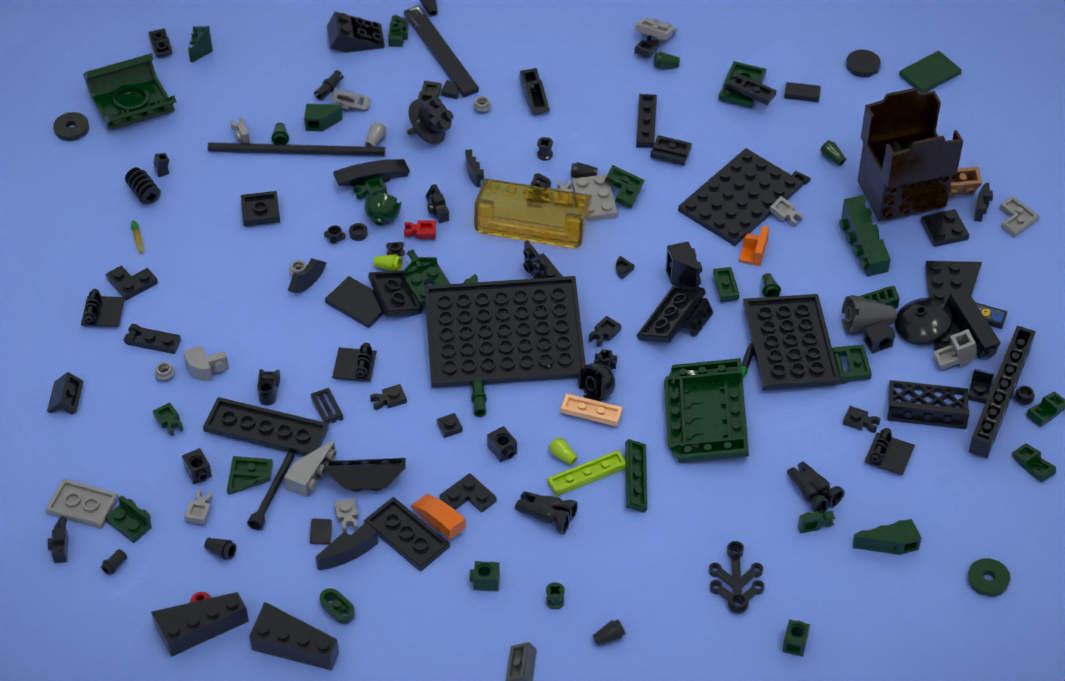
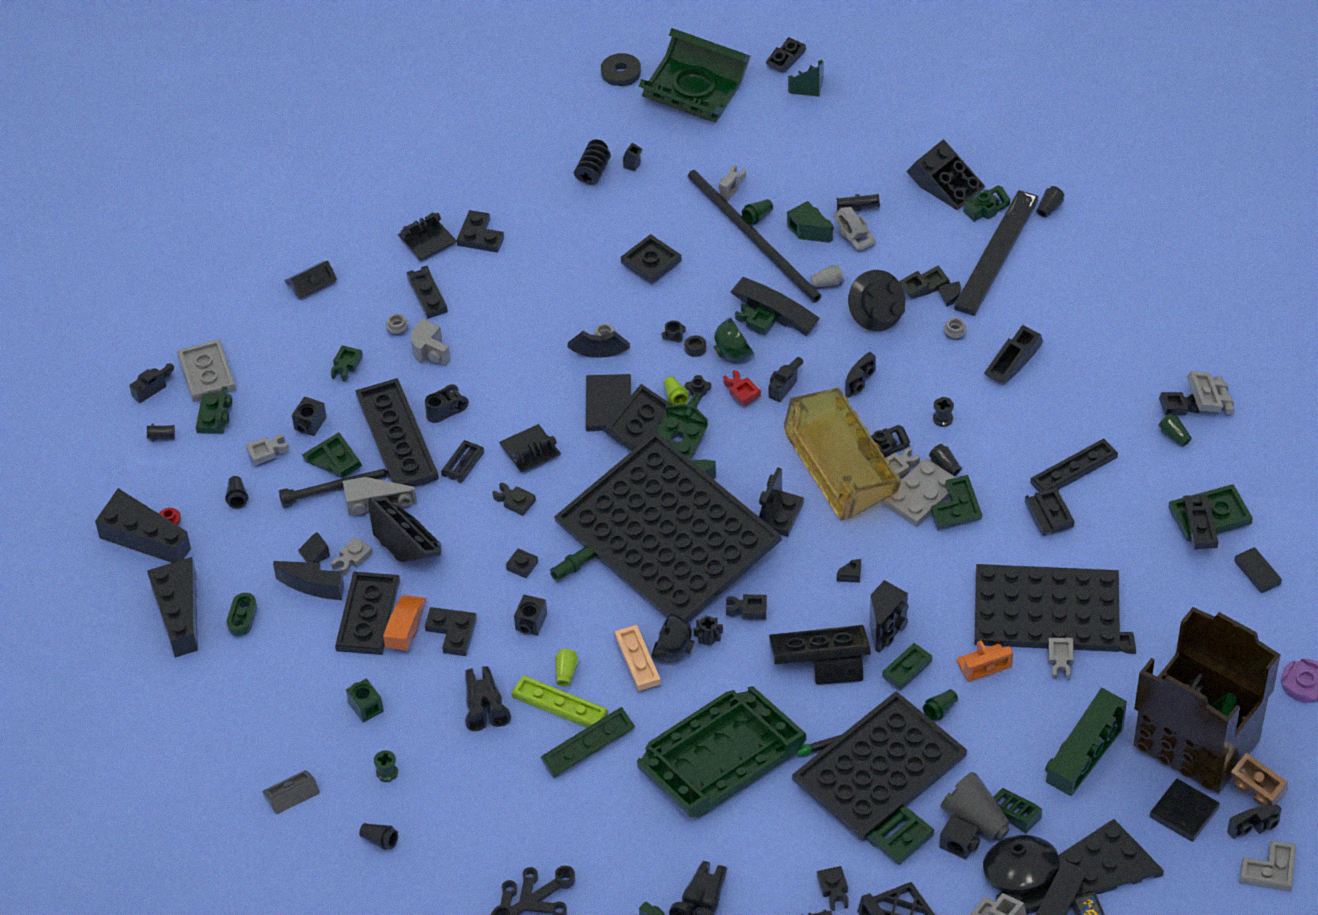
camera: 55 degrees right, 0 degrees up
(137, 236) = (544, 192): clear yellow piece -> none

